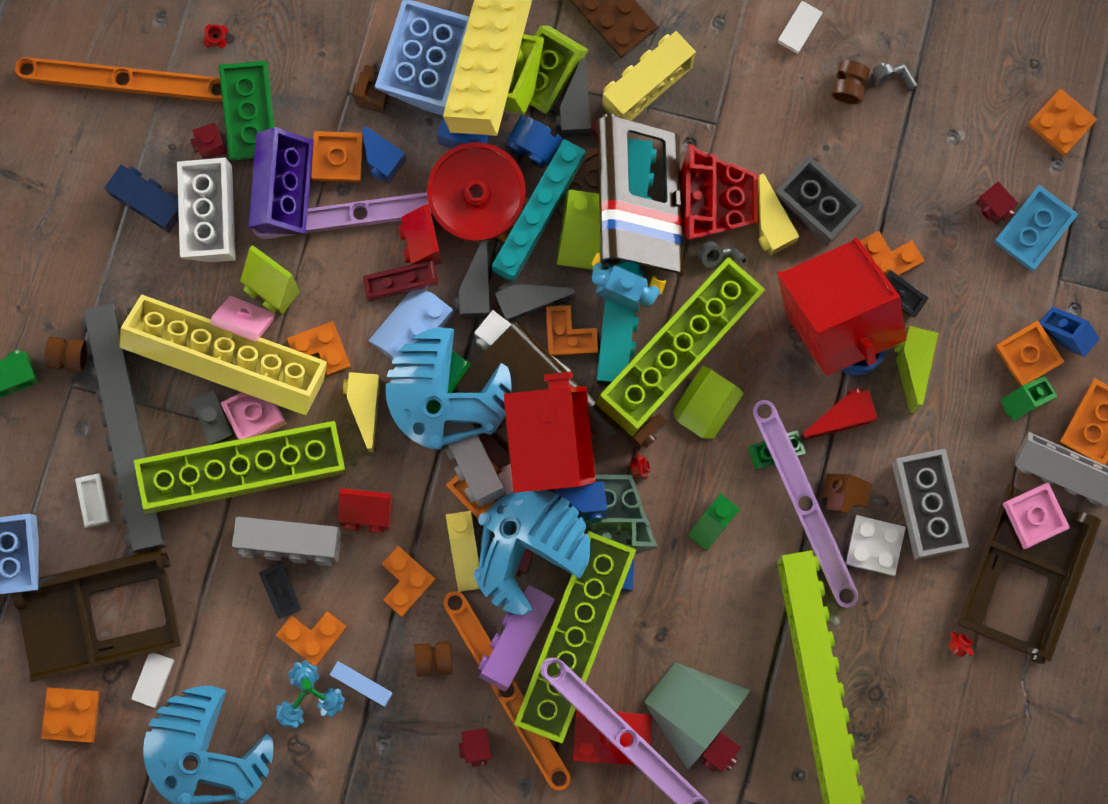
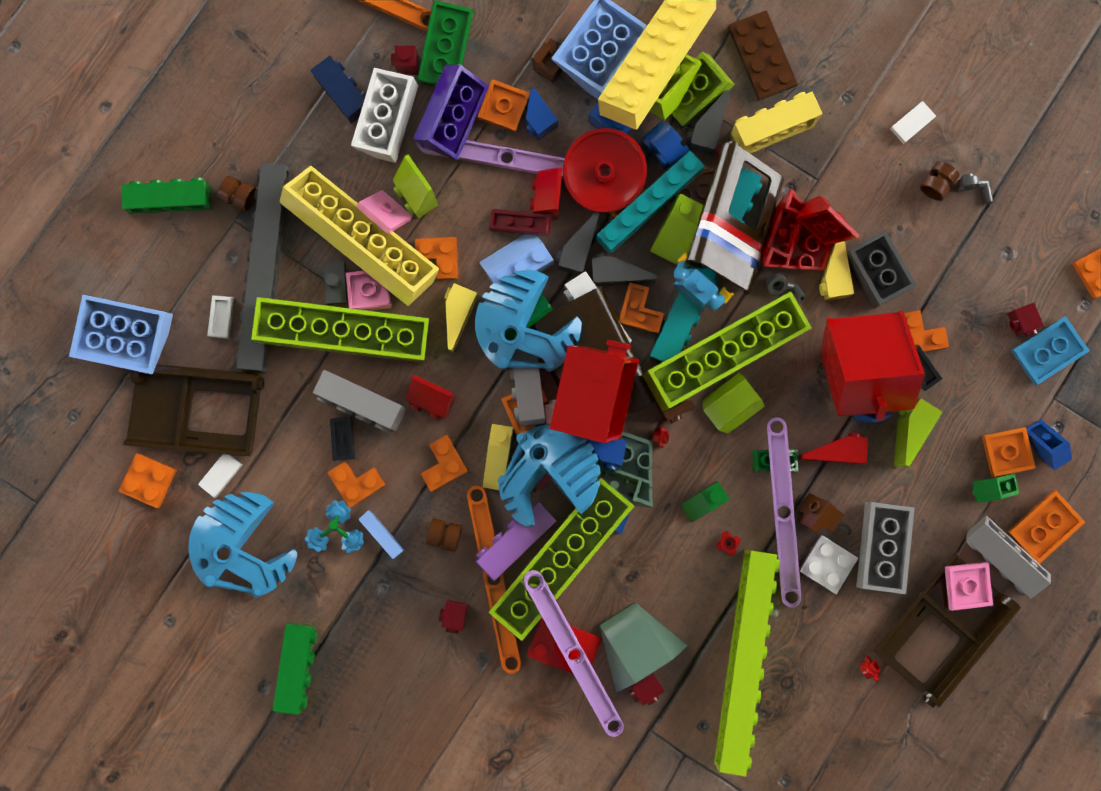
camera: 25 degrees right, 5 degrees up
(739, 168) = (825, 222): none -> red slope
(761, 555) = (734, 542): none -> red plate

